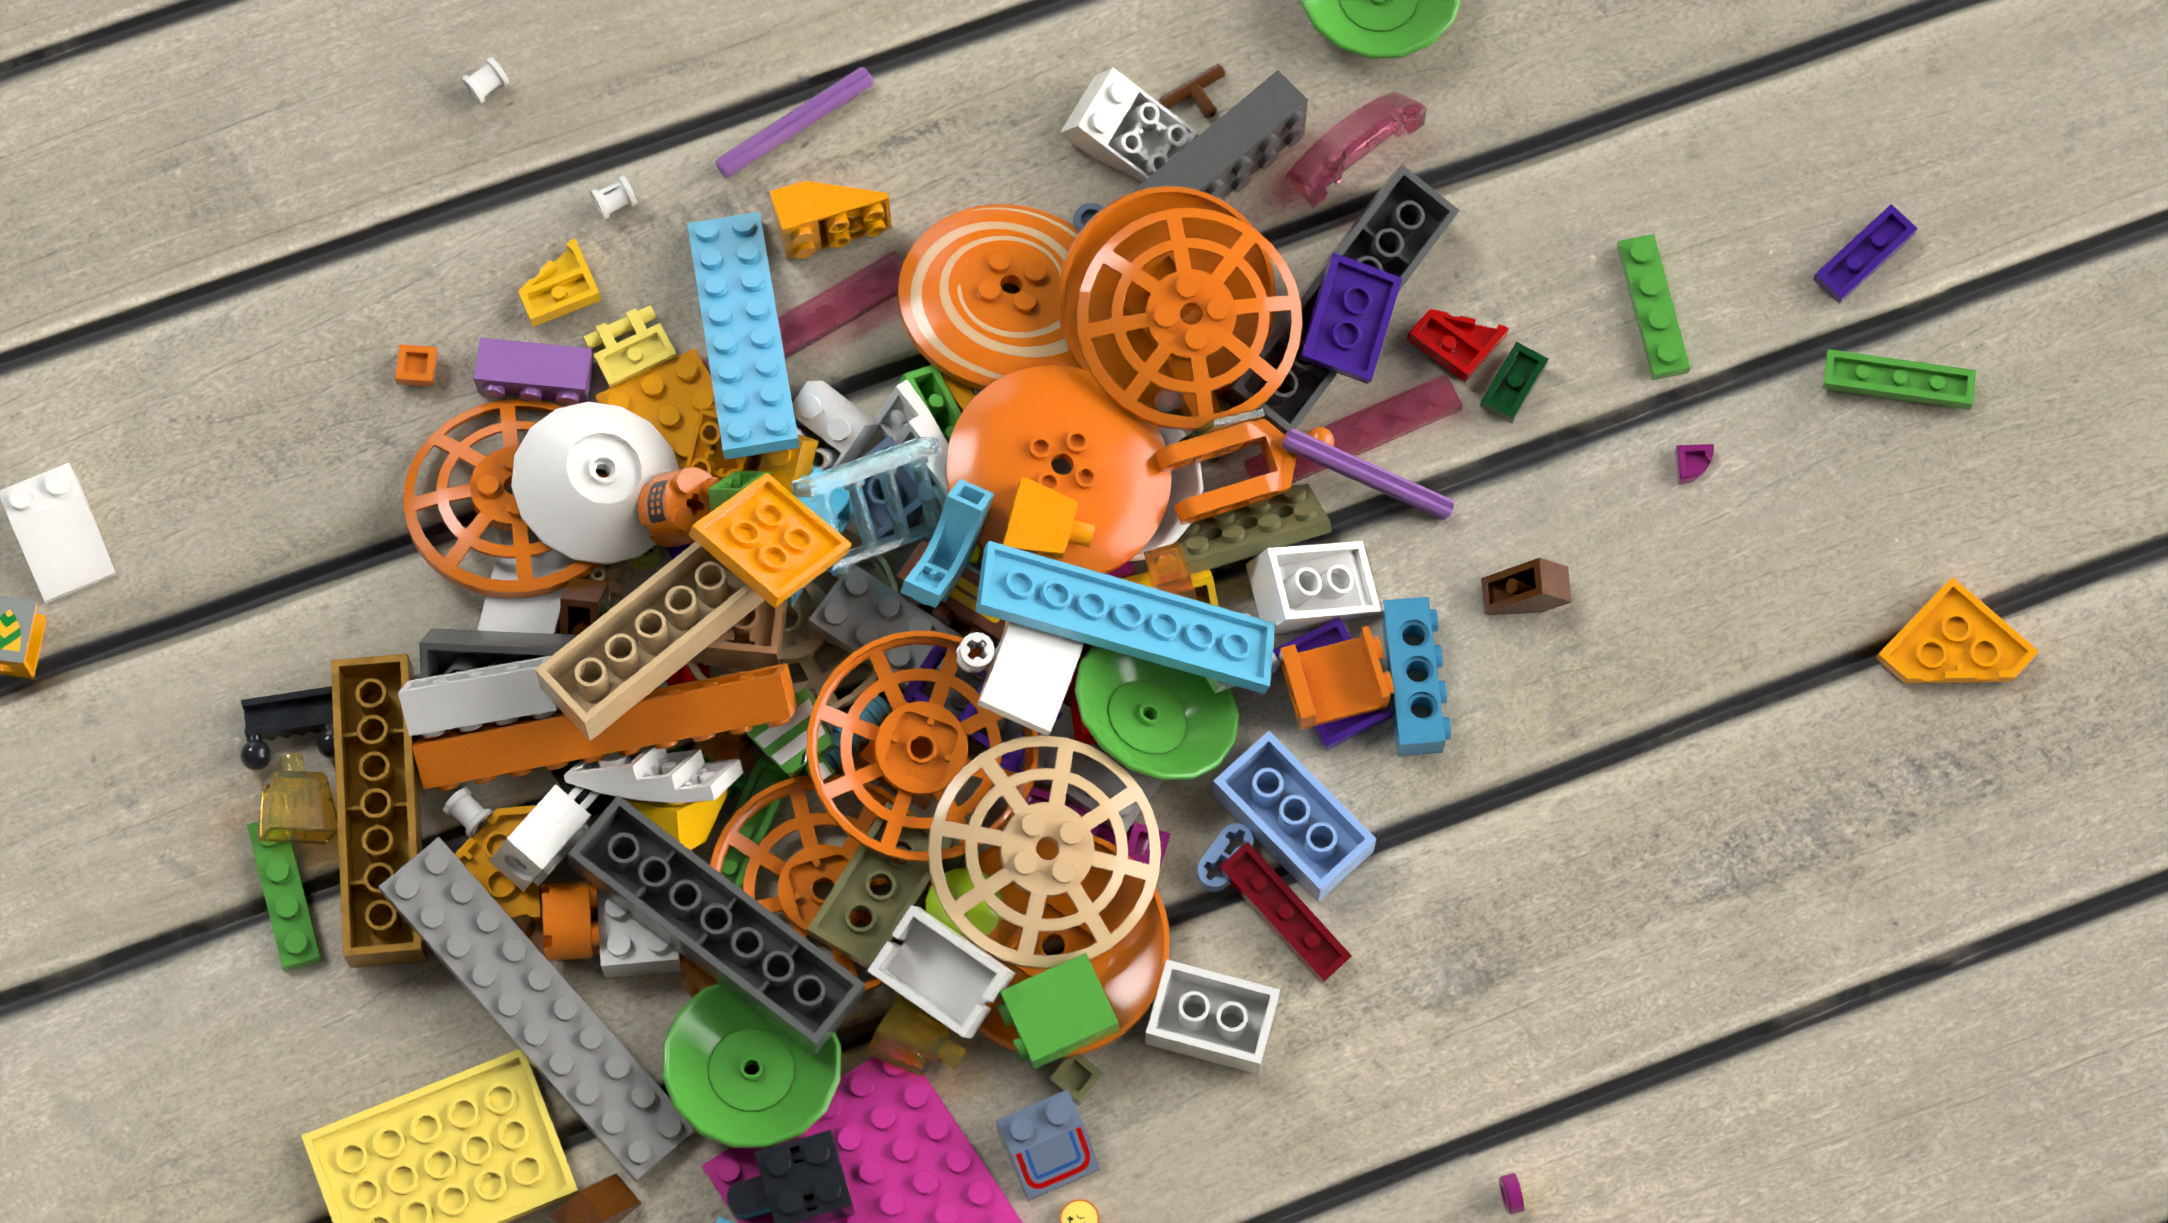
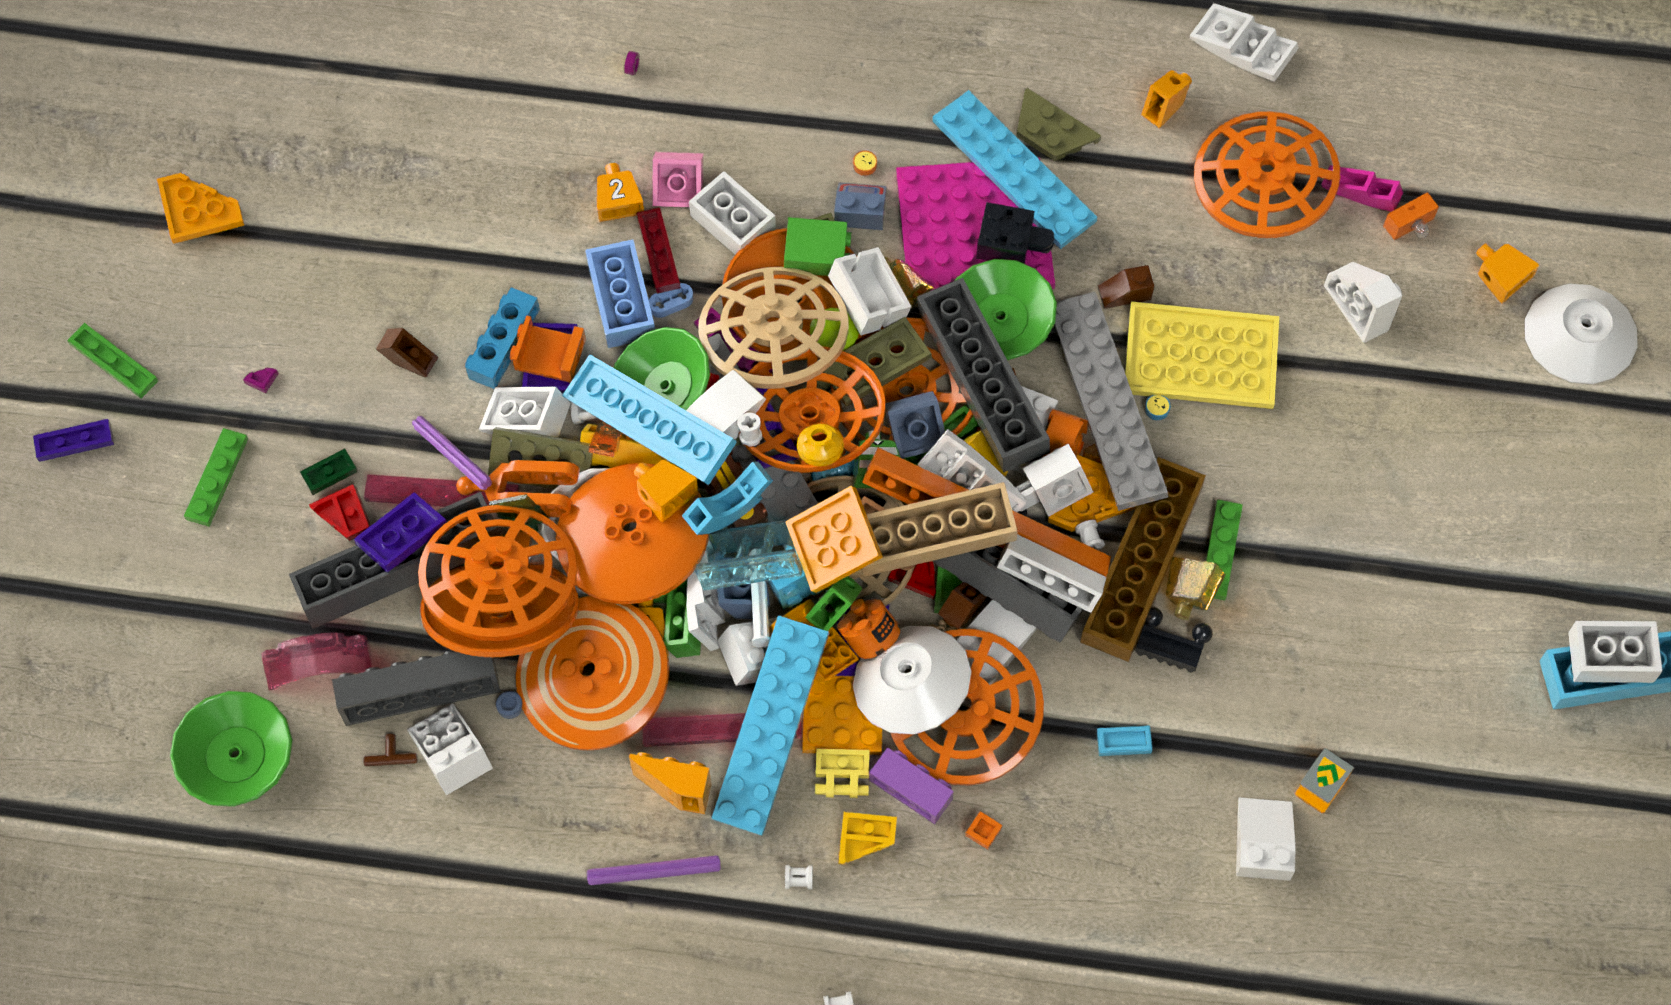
camera: 150 degrees left, 5 degrees down
(295, 570) = (1124, 740): none -> medium azure tile
(466, 1053) = (1157, 407): none -> light yellow tile
(774, 817) = (915, 423): none -> sand blue slope
(834, 456) = (760, 611): none -> white axle
(866, 702) = (820, 452): none -> yellow piece
(1328, 1042) = (676, 178): none -> bright pink slope
(1397, 972) = (617, 194): none -> light orange torso

